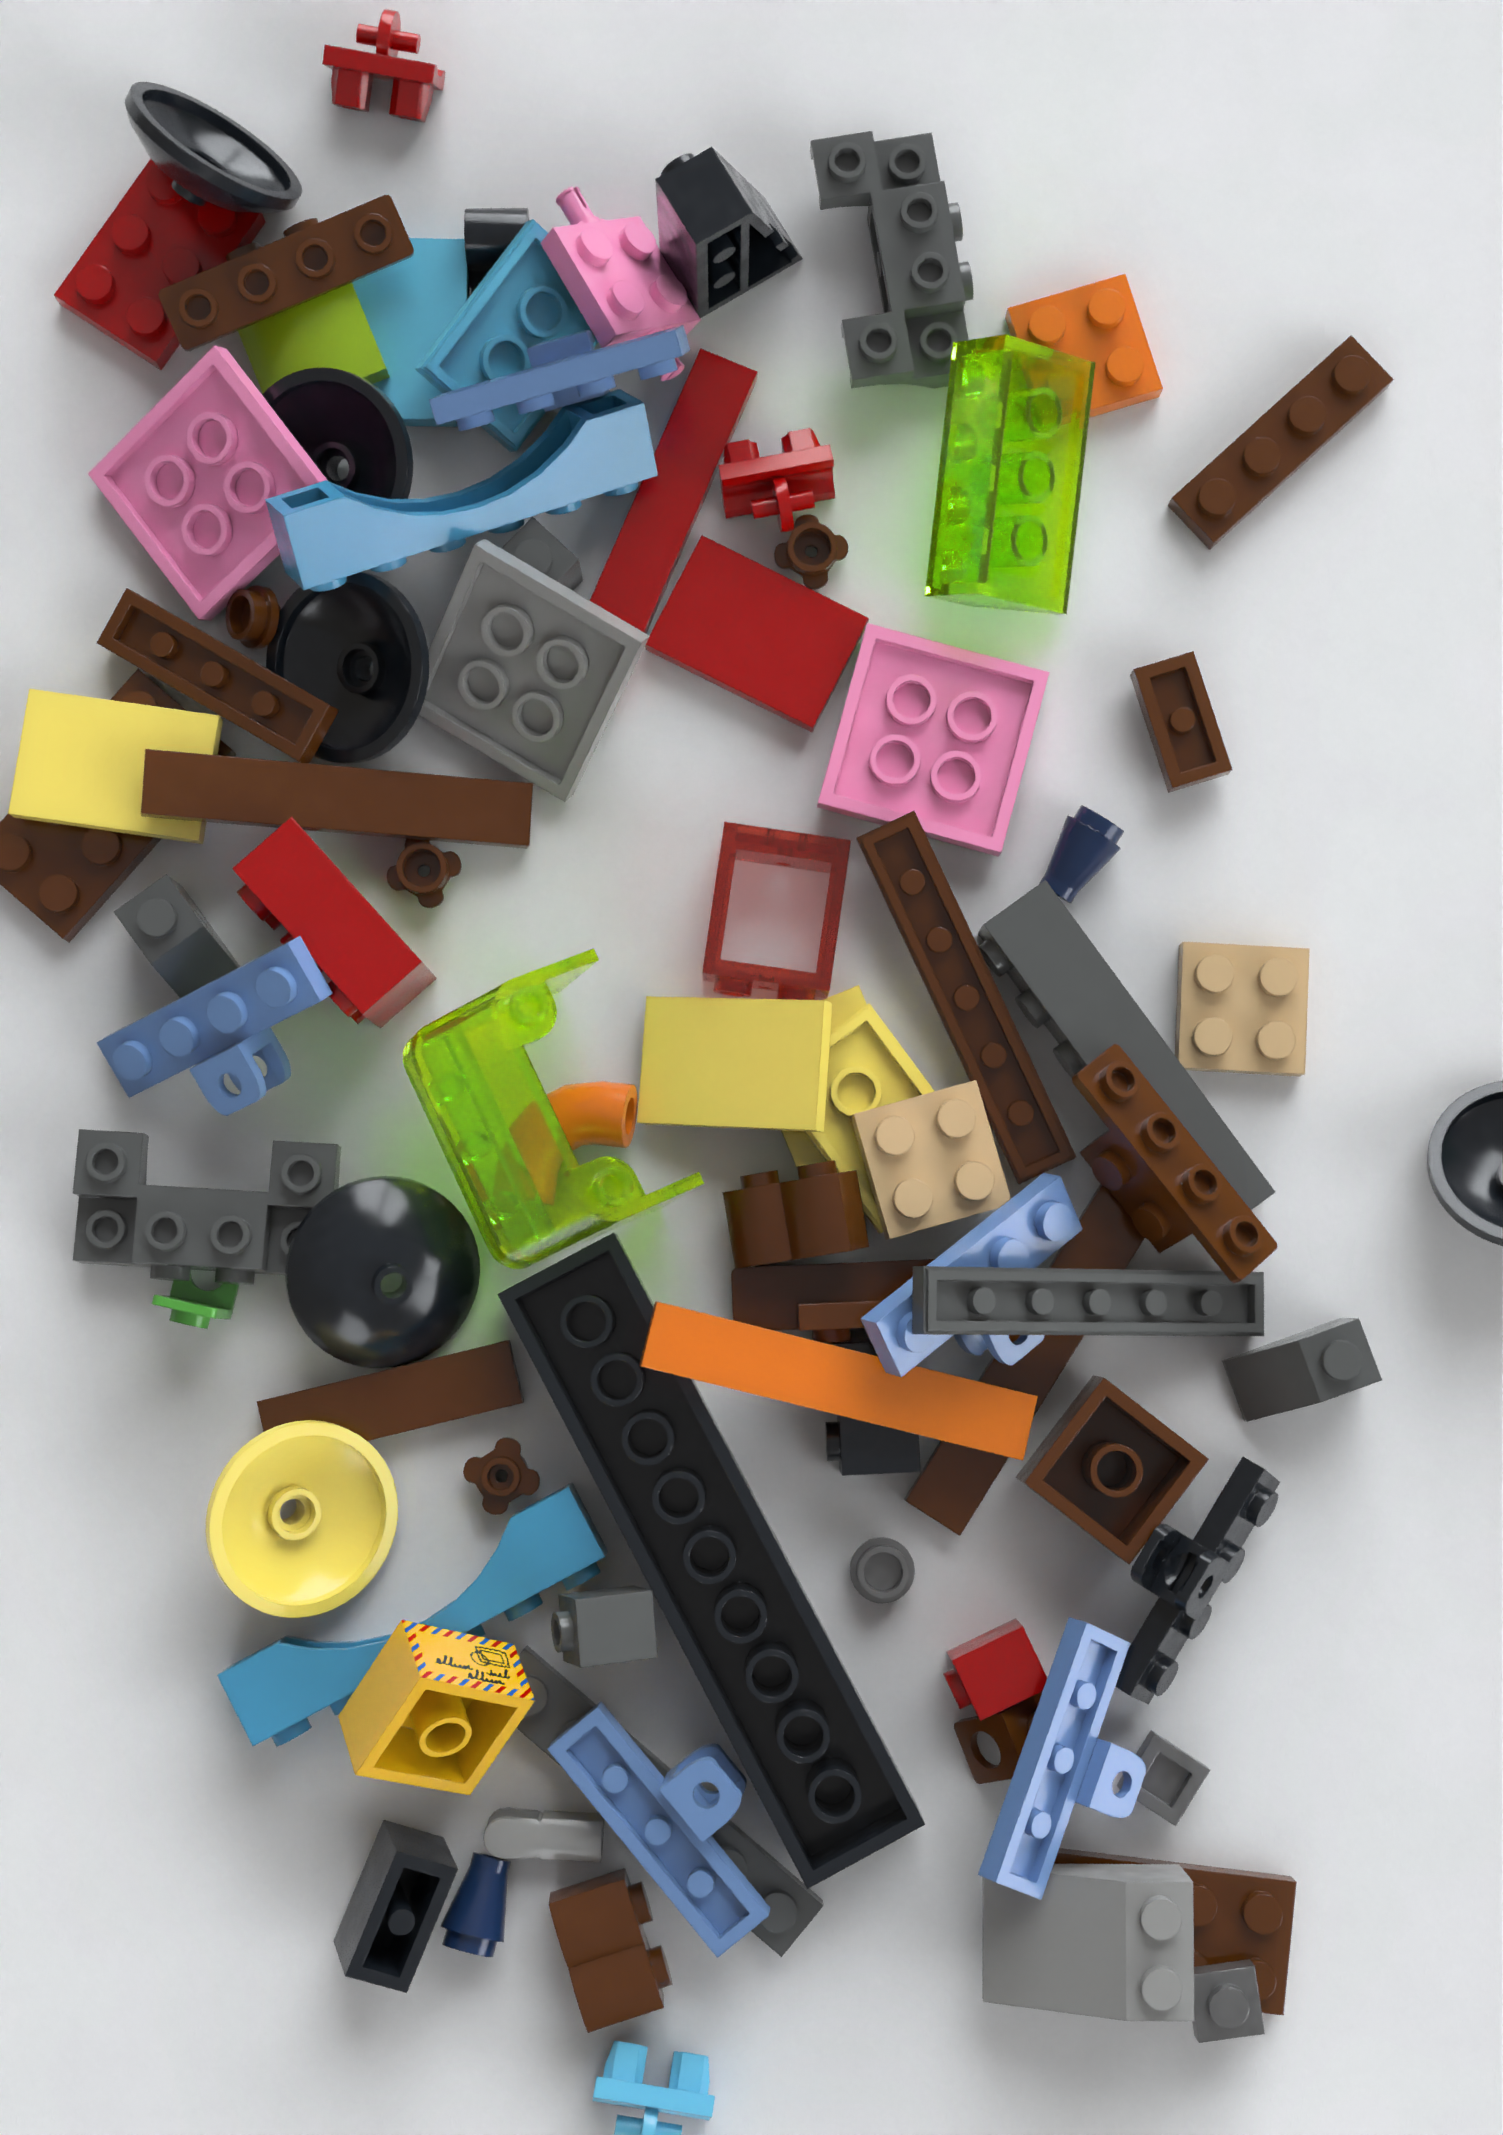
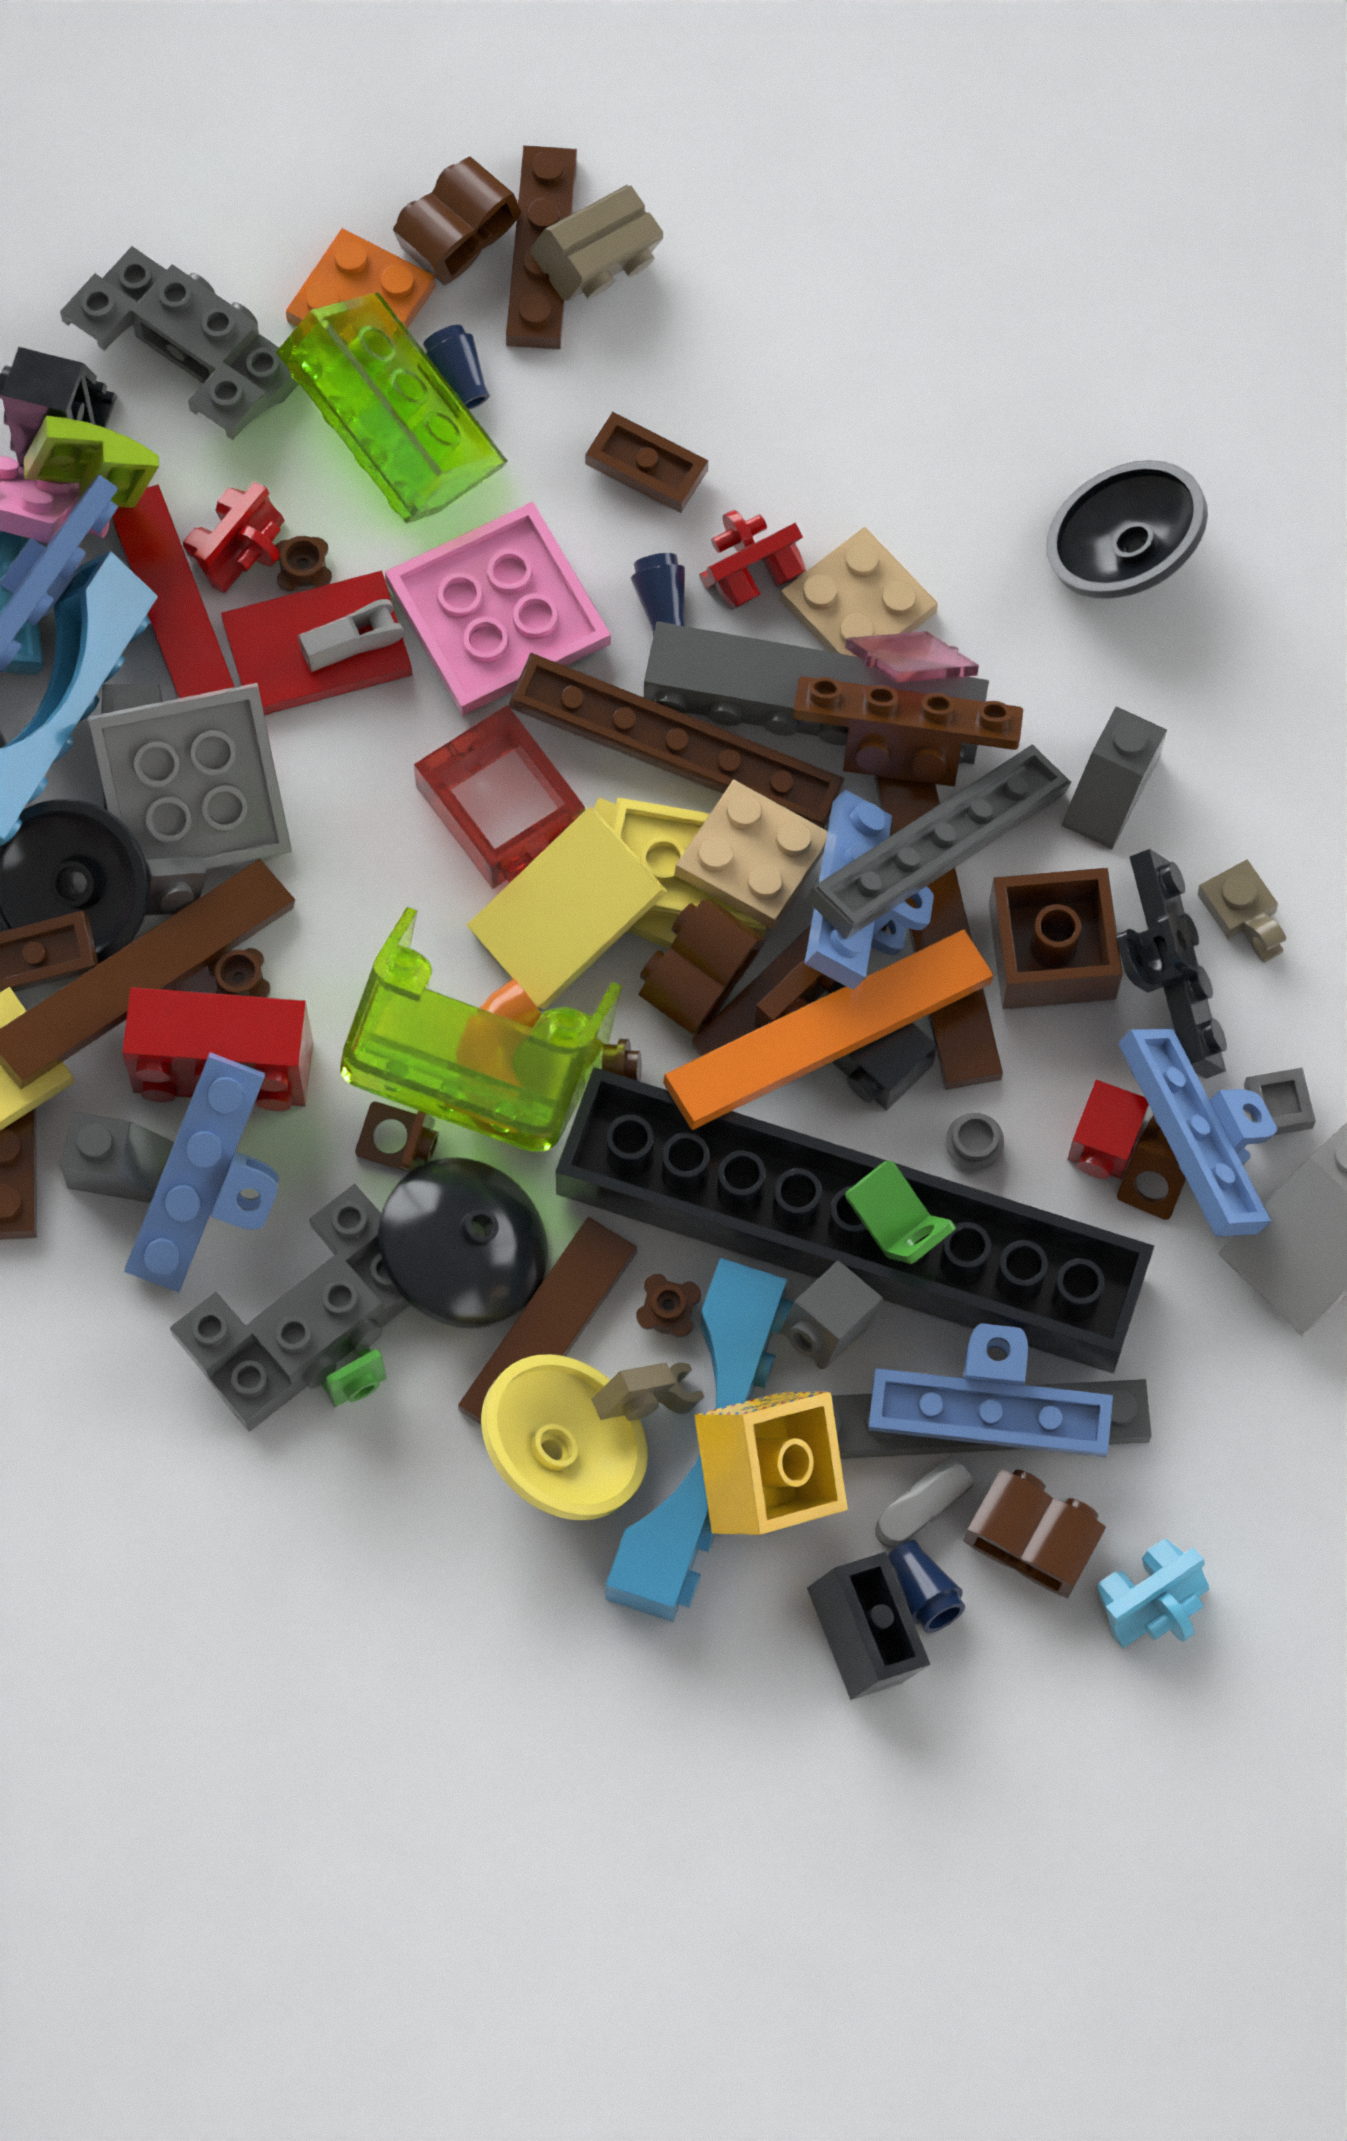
camera: 40 degrees left, 15 degrees down
(397, 1535) = (641, 1389): none -> dark tan plate
(418, 1155) = (420, 1137): none -> reddish brown bracket
(436, 745) = (174, 883): none -> flat silver plate
(652, 1238) = (622, 1060): none -> reddish brown plate
(709, 320) = (82, 451): none -> lime slope
(729, 1610) = (896, 1214): none -> bright green bracket
(773, 651) = (341, 637): none -> light grey bar
(1106, 485) = (458, 362): none -> dark blue cone
(1212, 900) = (732, 573): none -> red hips
(1227, 354) = (456, 220): none -> reddish brown brick
(1230, 1109) = (912, 656): none -> clear pink piece
(1304, 1572) = (1244, 904): none -> dark tan plate
(1324, 486) = (597, 244): none -> dark tan brick

